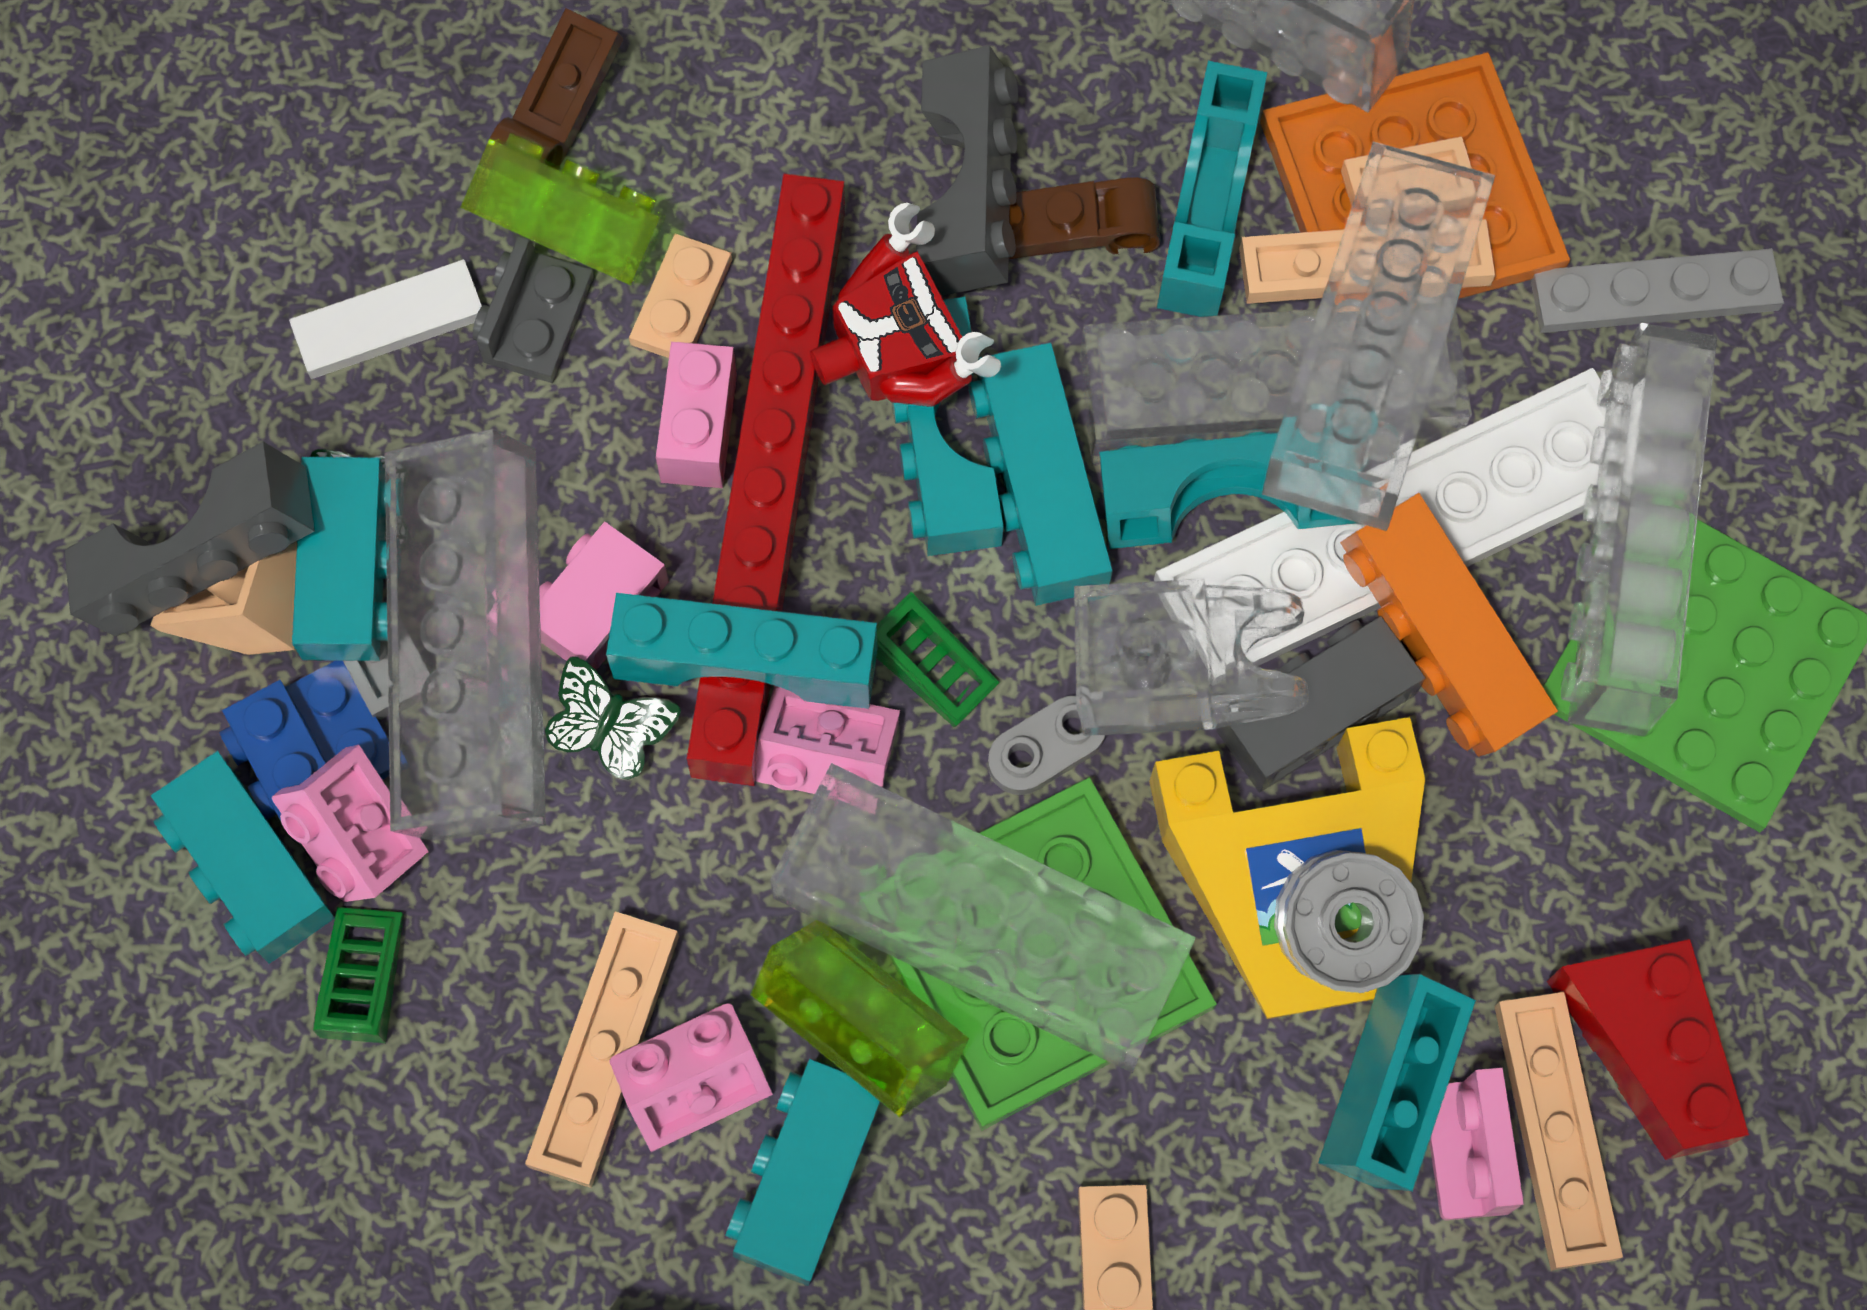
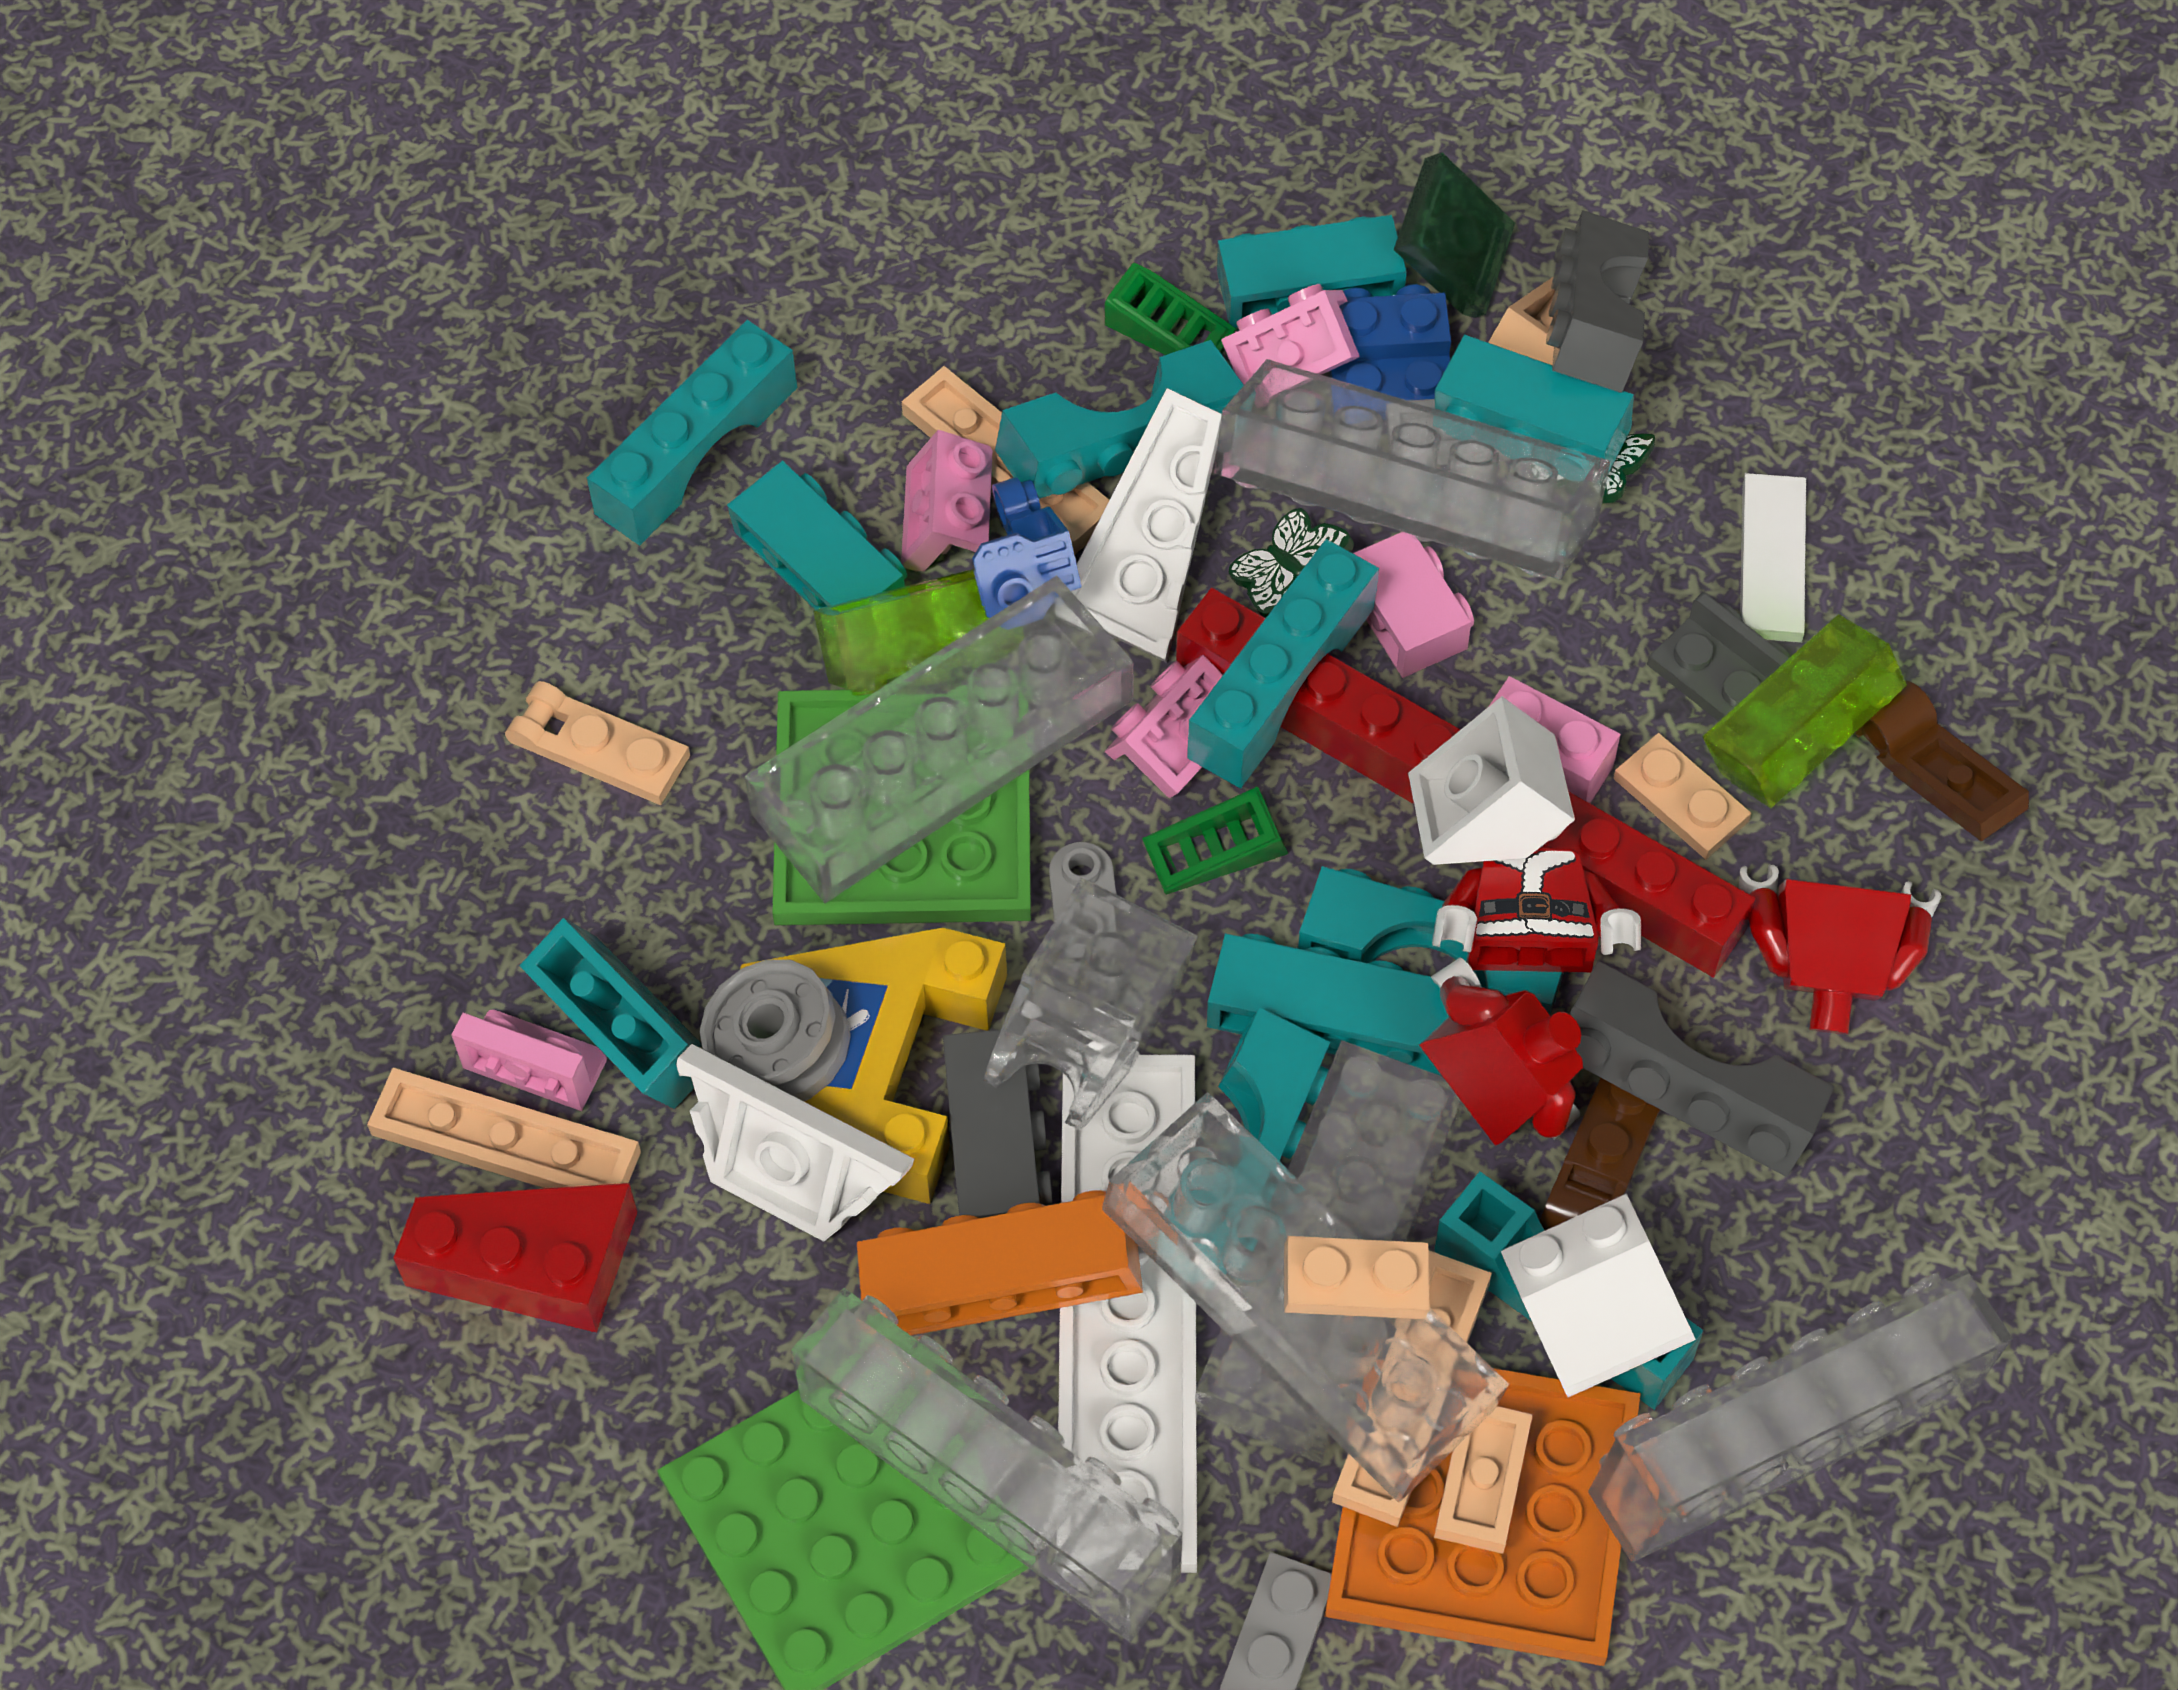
camera: 120 degrees right, 10 degrees down
(146, 730) = (1454, 236): none -> clear green plate
(585, 983) = (1071, 445): none -> teal arch
(659, 857) = (1148, 532): none -> white wing
(776, 113) = (1838, 940): none -> red torso
(782, 924) = (1029, 555): none -> blue piece
(820, 389) = (1491, 790): none -> white slope
(1060, 290) = (1505, 1056): none -> red torso
(1236, 132) = (1597, 1295): none -> white slope
(1365, 273) = (1356, 1277): none -> light nougat plate
(1453, 847) = (783, 1149): none -> white wing

